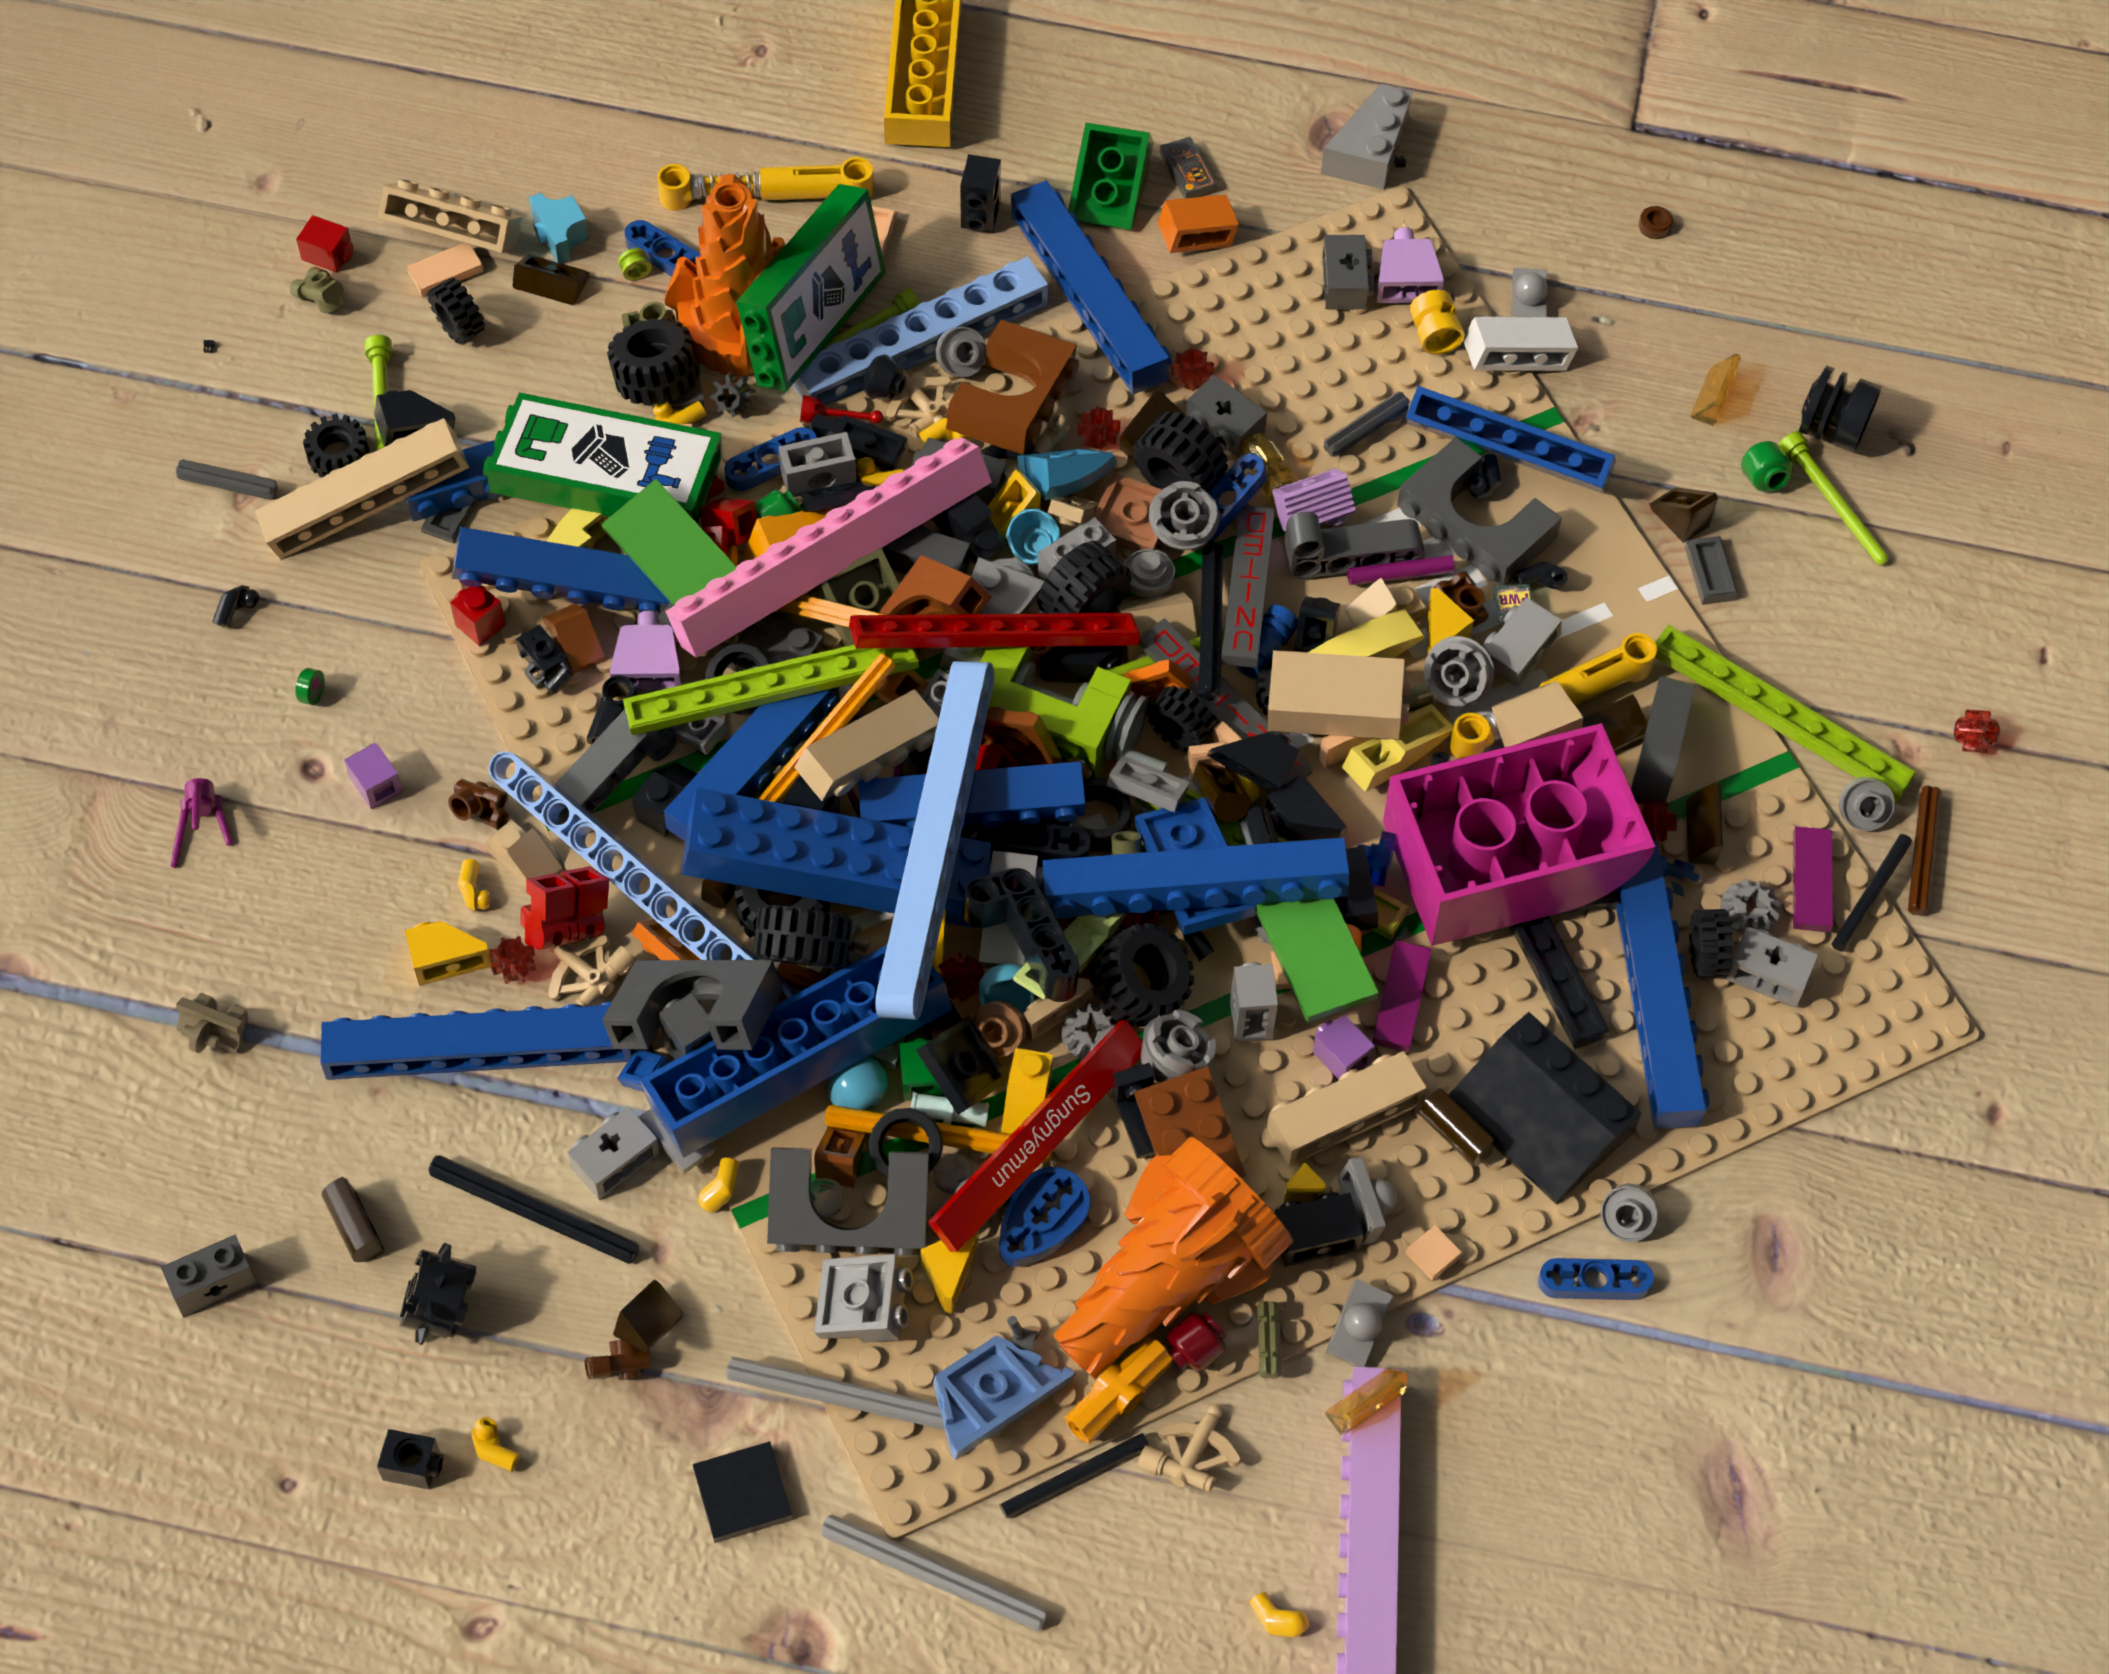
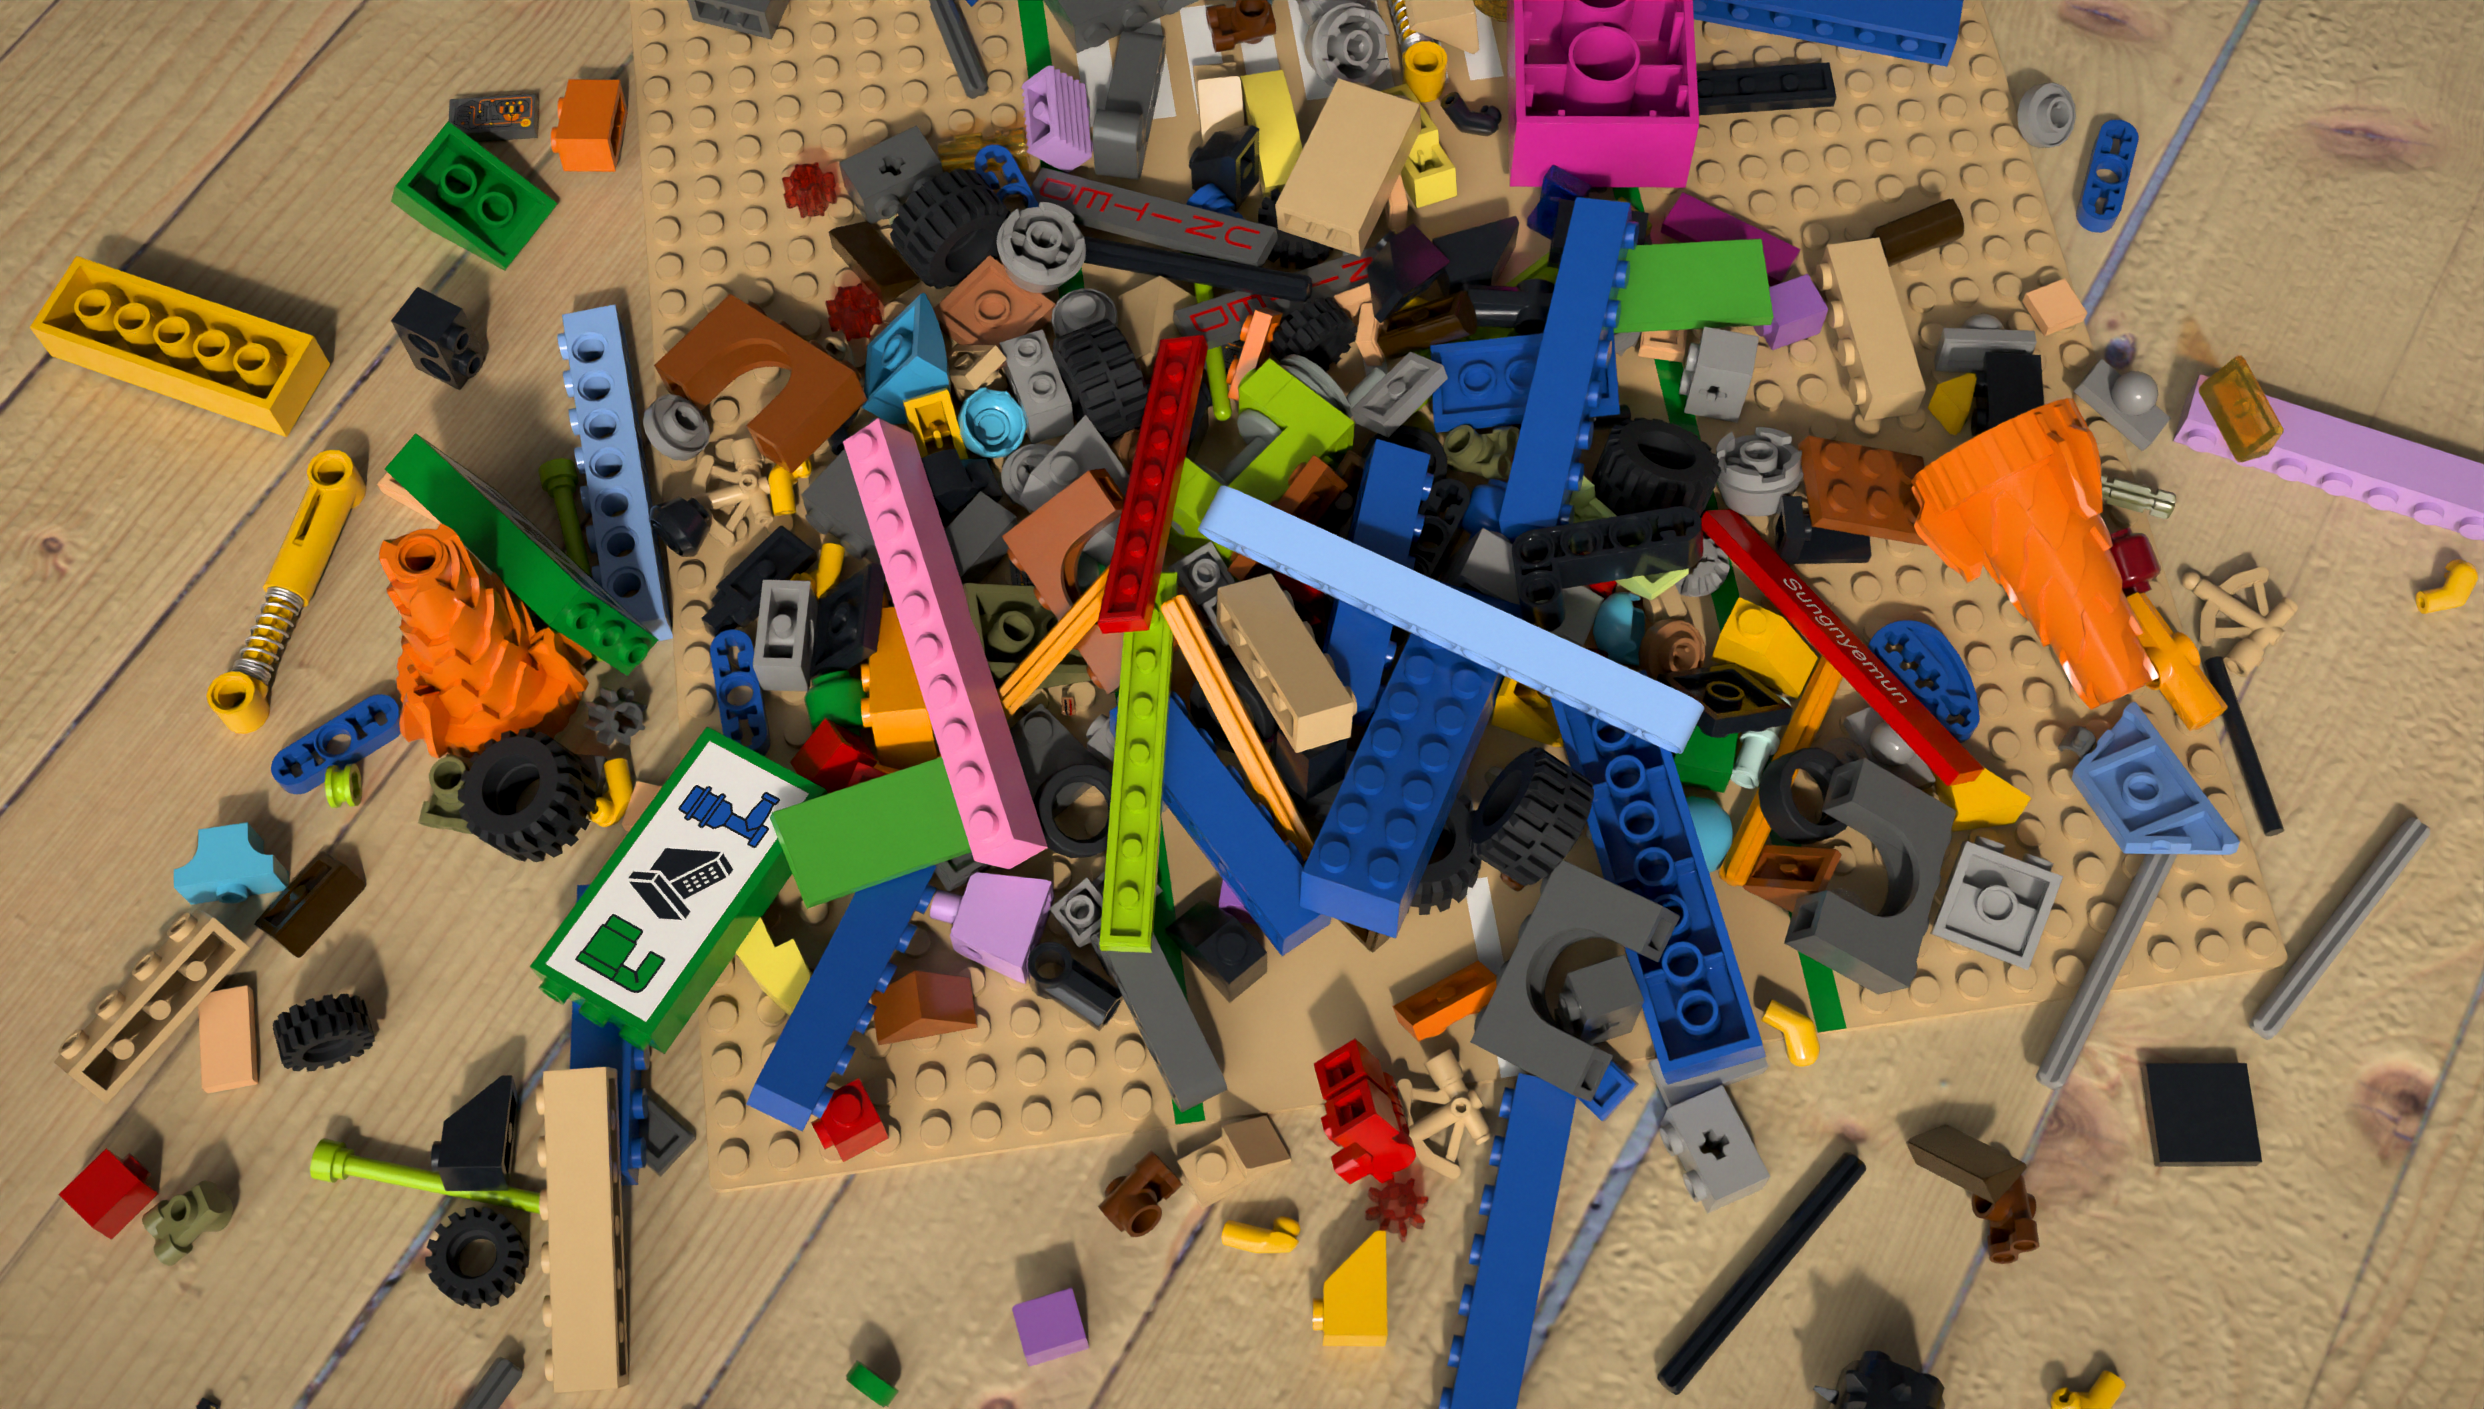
camera: 70 degrees left, 5 degrees up
(545, 659) = (951, 1051): black piece -> none
(604, 850) = (1342, 1021): light blue beam -> none
(813, 406) = (685, 625): red hinge -> none
(1091, 287) = (635, 262): blue brick -> none
(1400, 570) = (1172, 73): magenta piece -> none
(1445, 619) = (1268, 48): yellow slope -> none
(1545, 1107) = (1909, 145): black slope -> none

